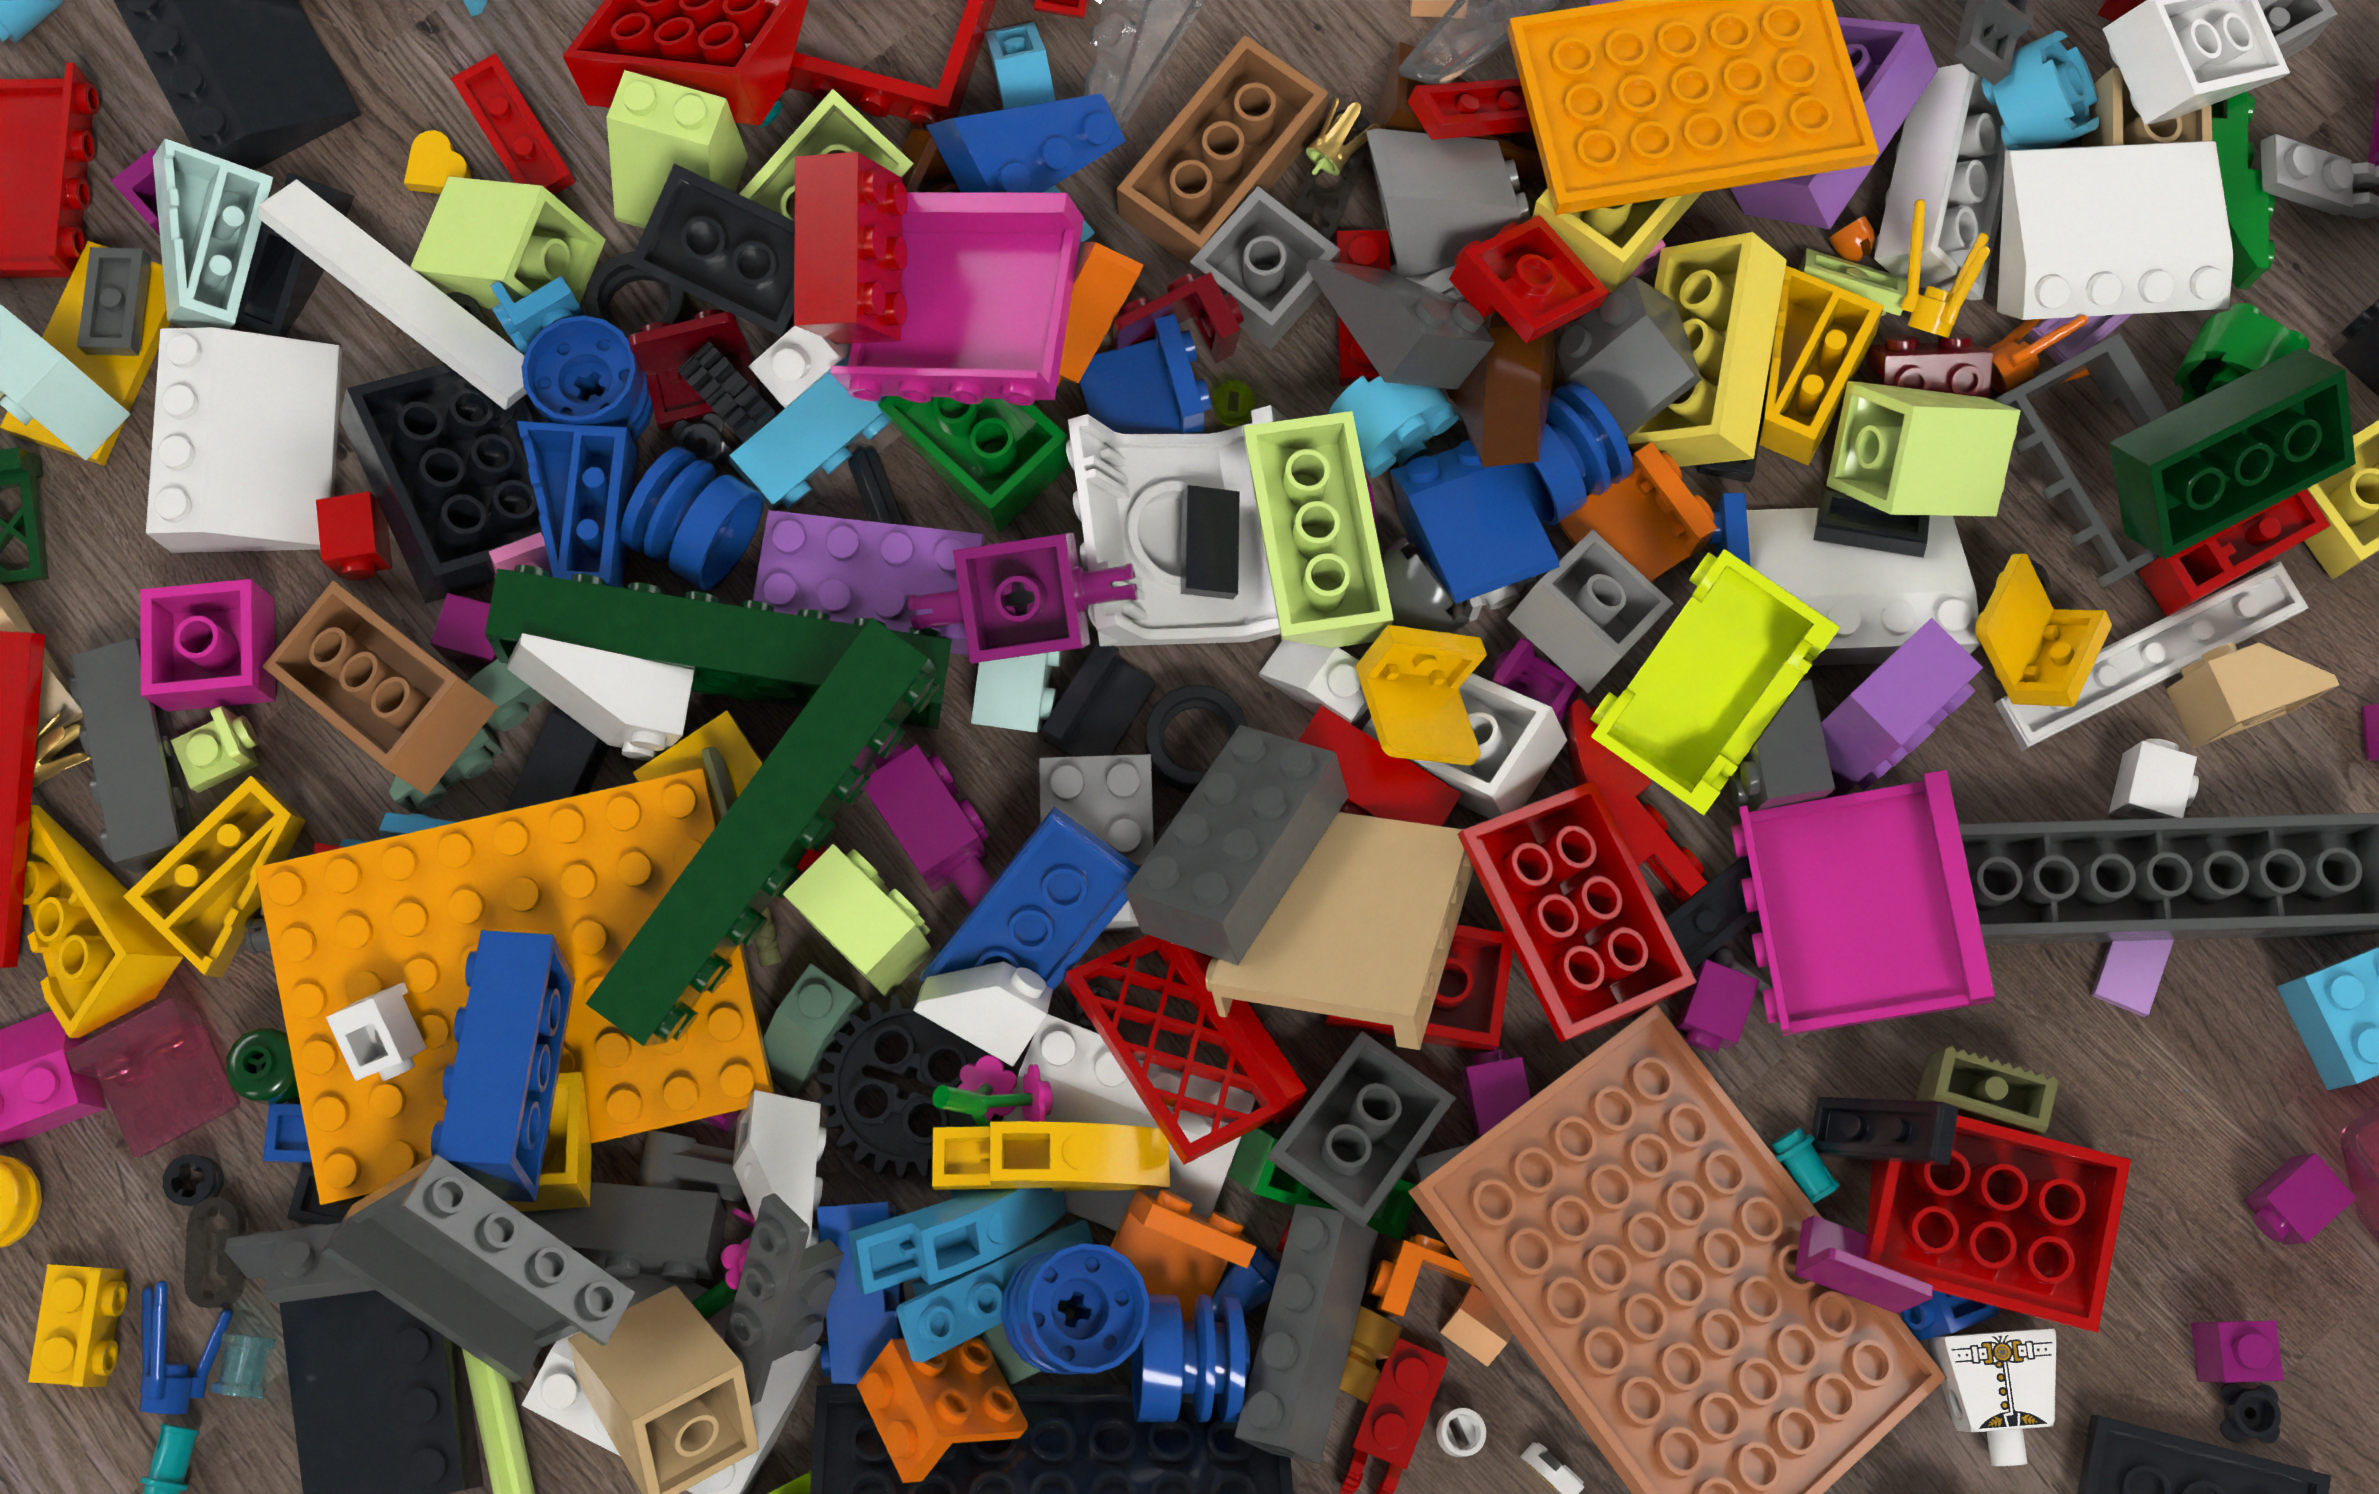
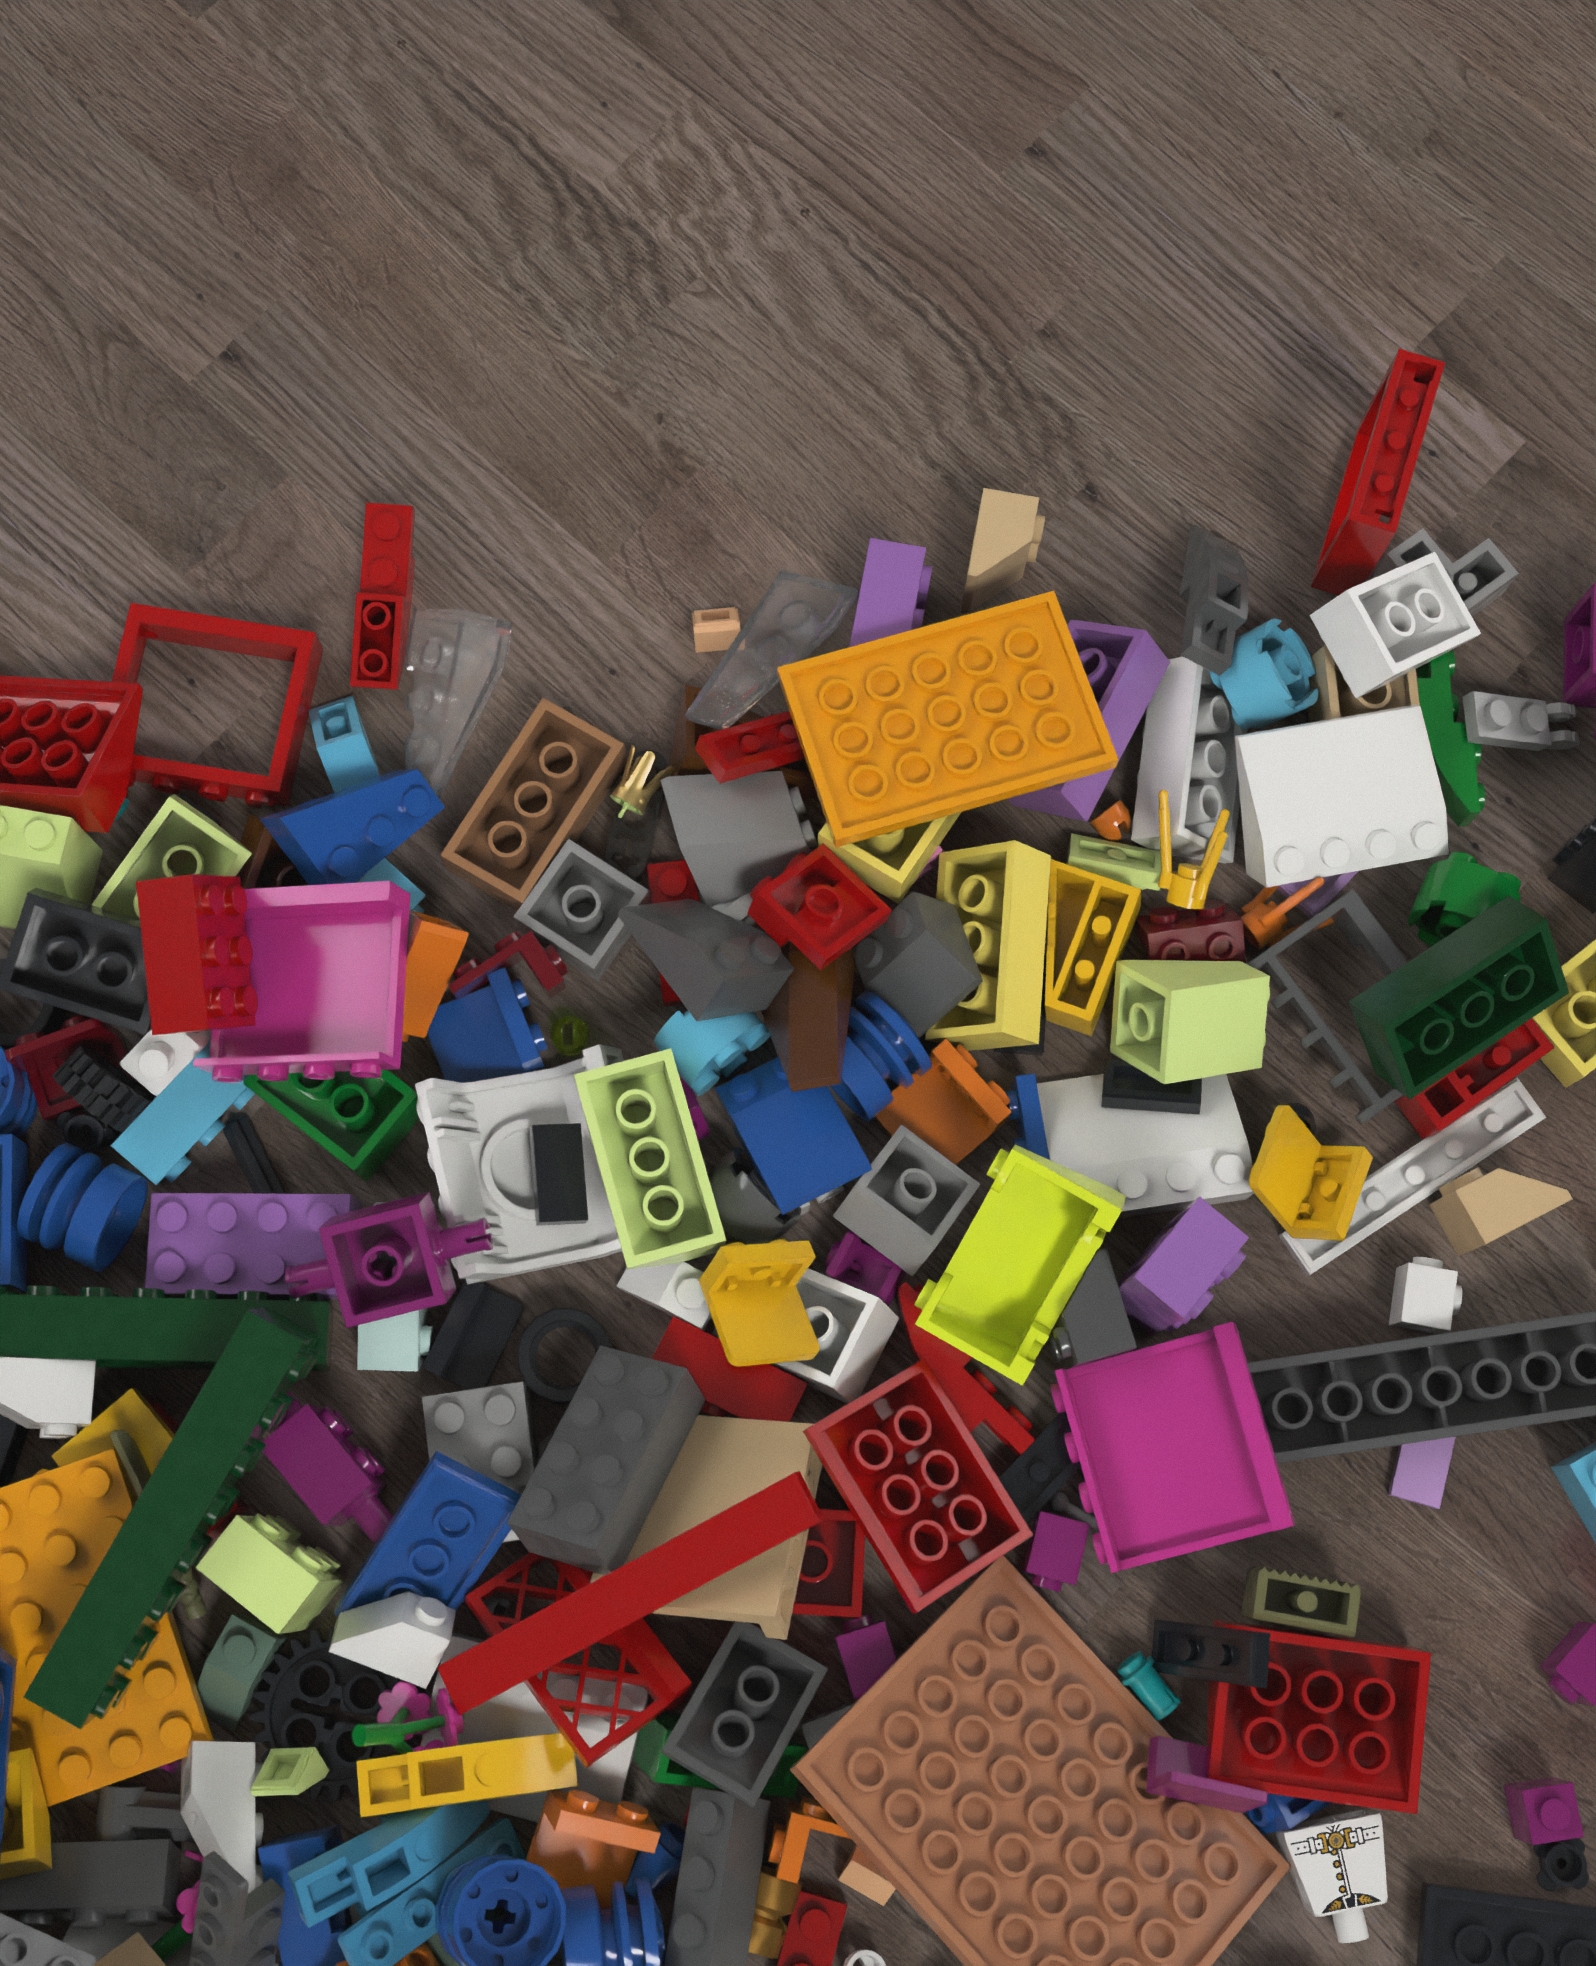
camera: 10 degrees left, 0 degrees up
(856, 1136) = (289, 1772): none -> yellowish green slope
(1256, 976) = (630, 1592): none -> red tile

